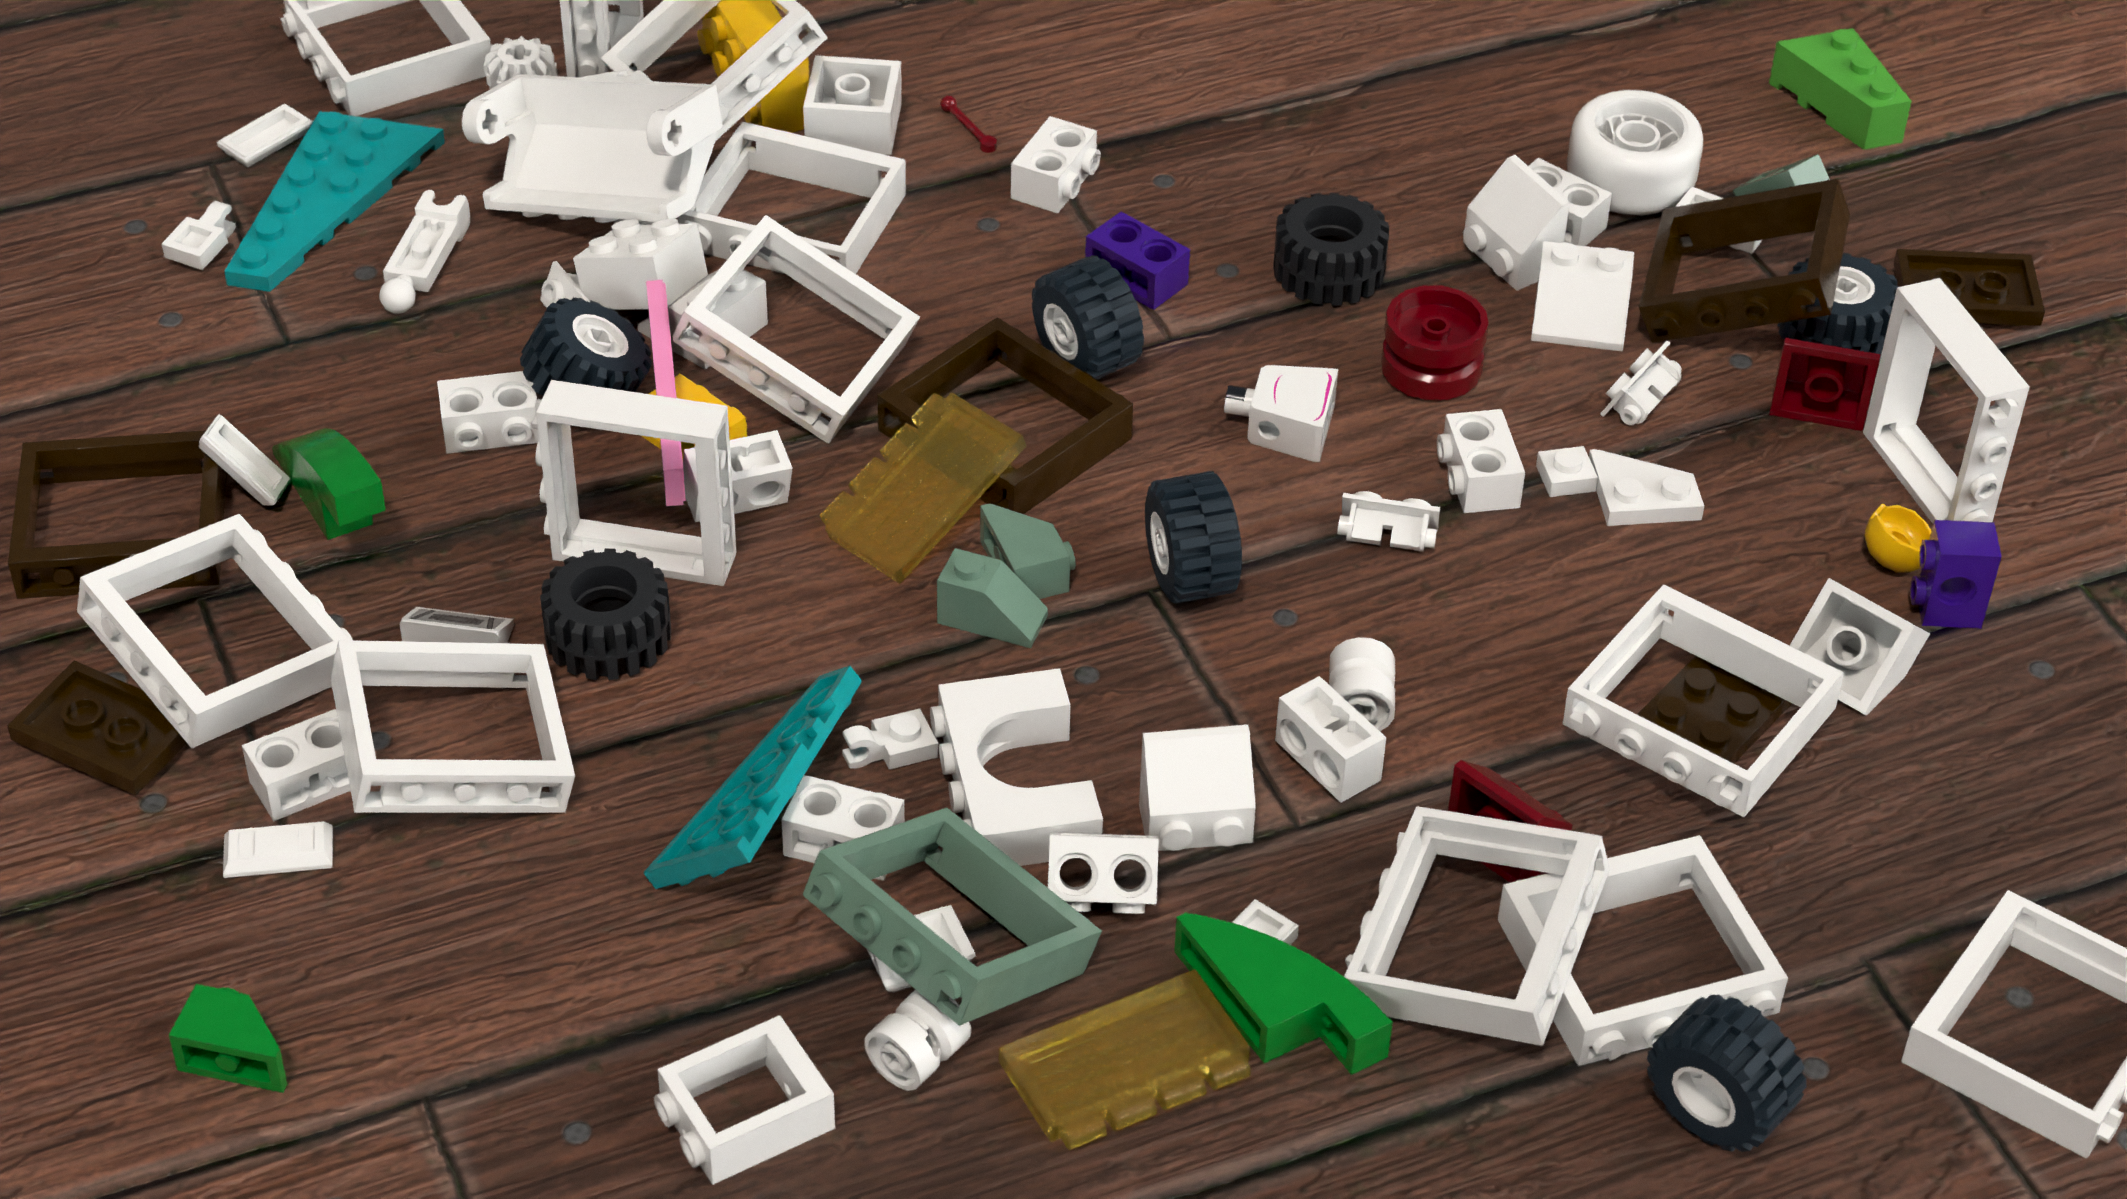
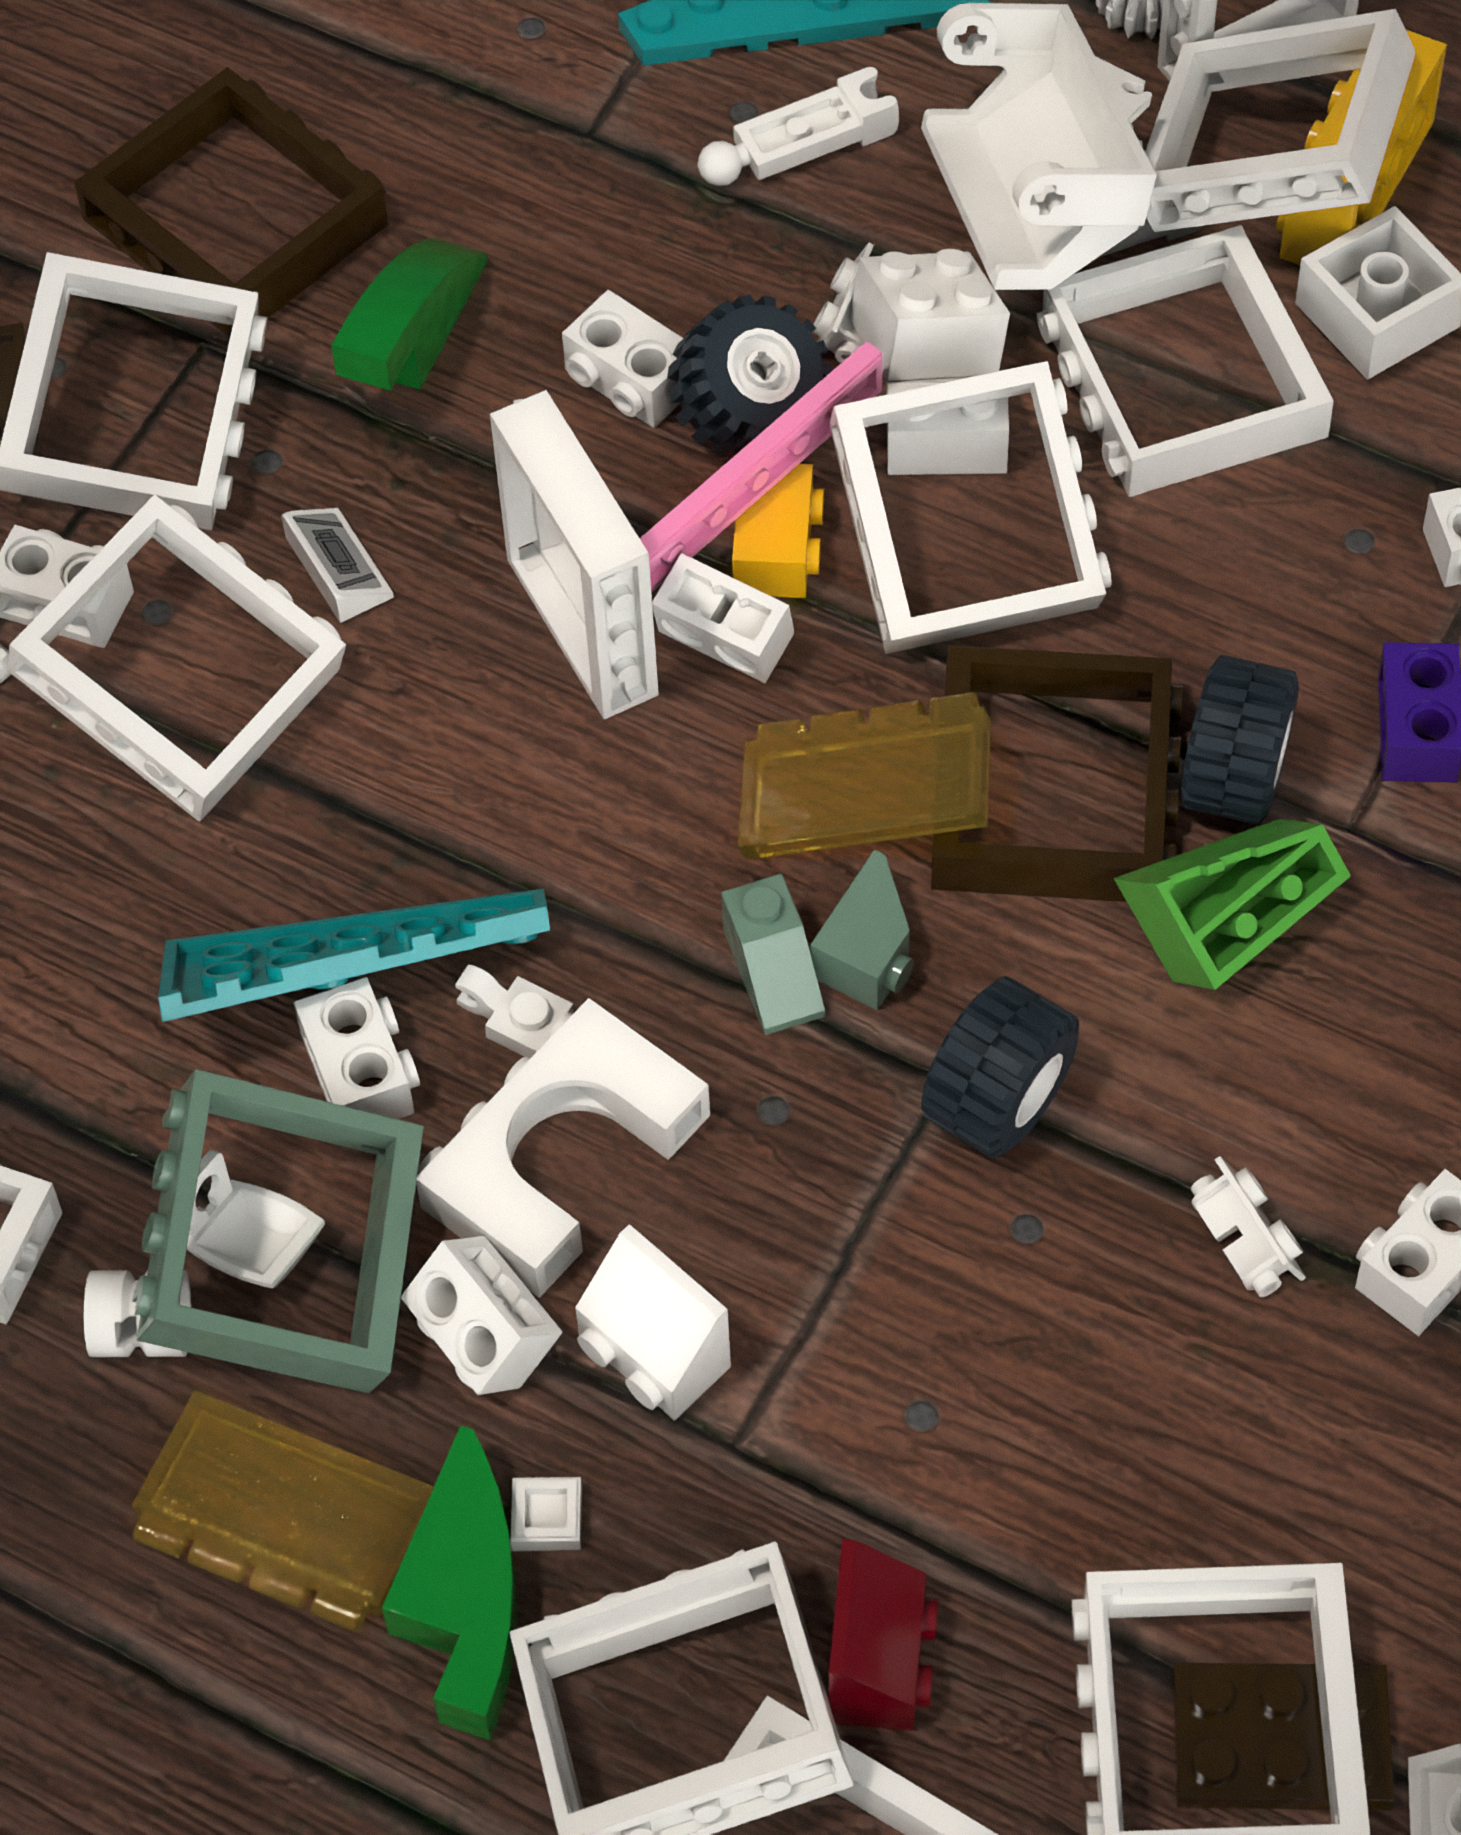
camera: 55 degrees right, 15 degrees up
(243, 461) = (364, 228): white tile -> none
(606, 614) = (438, 620): black tyre -> none
(1181, 392) = (1232, 897): none -> bright green wedge
(1287, 408) = (1329, 1015): white torso -> none
(1330, 739) = (842, 1393): white brick -> none
(1365, 677) = (965, 1365): white wheel -> none

